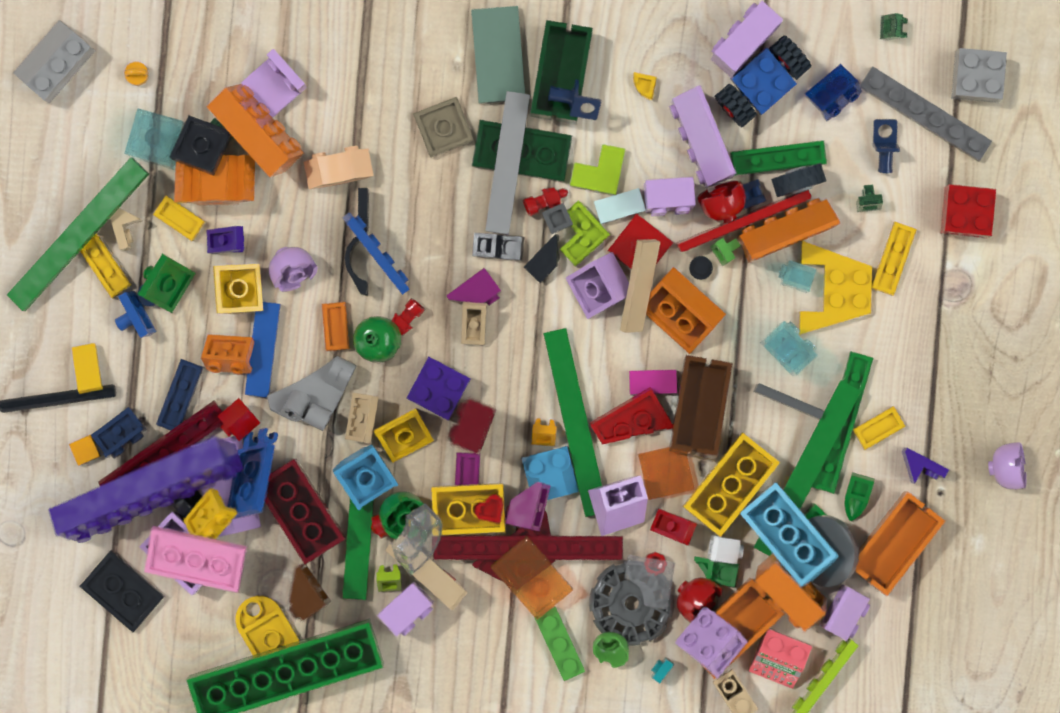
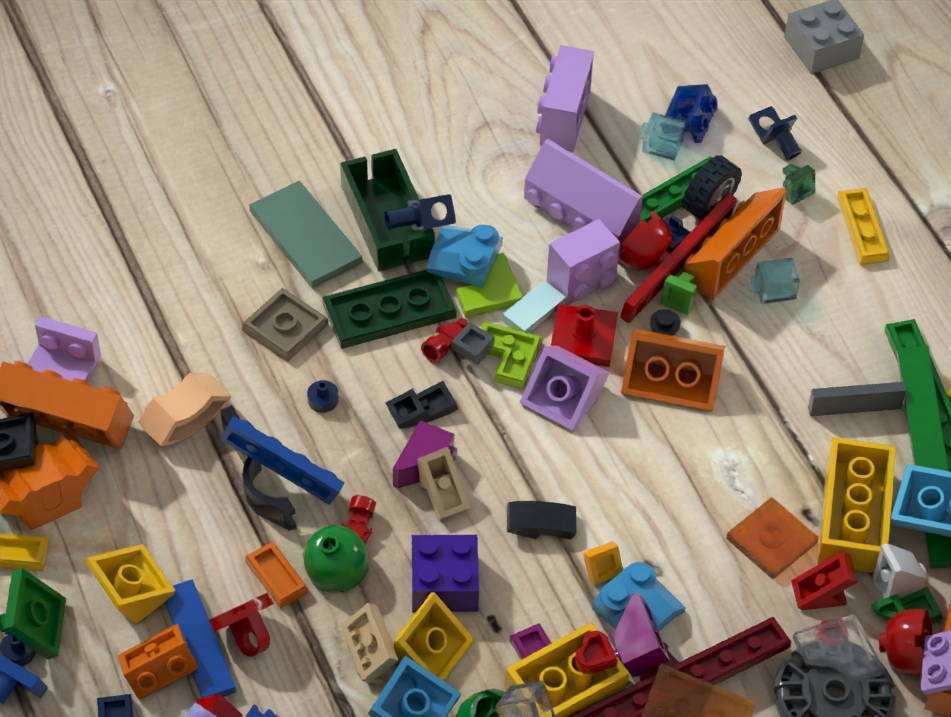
camera: 30 degrees left, 35 degrees down
(225, 240) = (86, 538): dark purple slope -> none
(291, 267) = (187, 529): lavender cylinder -> none
(294, 356) = (244, 620): none -> red tile
(314, 396) = (296, 655): light grey panel -> none
(437, 208) = (322, 396): none -> dark blue tile
(473, 425) = (514, 566): dark red brick -> none
(507, 163) = (381, 319): light grey tile -> none
(524, 379) = (539, 517): none -> black slope
(544, 260) = (484, 394): black slope -> none
(573, 415) = (633, 538): green tile -> none
(595, 139) = (465, 253): none -> dark azure slope
(619, 504) = (744, 584): lavender slope -> none
(633, 417) = (695, 498): red wing -> none
(639, 286) = (611, 355): tan tile -> none
(644, 84) = (485, 192): yellow tile -> none
(659, 380) = (691, 455): dark pink tile -> none
(700, 407) = (765, 442): reddish brown piece -> none
(763, 81) = (612, 121): plate -> none
(789, 347) = (818, 341): clear light blue brick -> none
(799, 105) = (662, 136): none -> clear light blue brick
(845, 288) = (833, 273): yellow wing -> none
(892, 26) = (707, 36): clear green tile -> none
(925, 114) = (797, 93): flat silver plate -> none
(968, 211) = (906, 146): red piece -> none

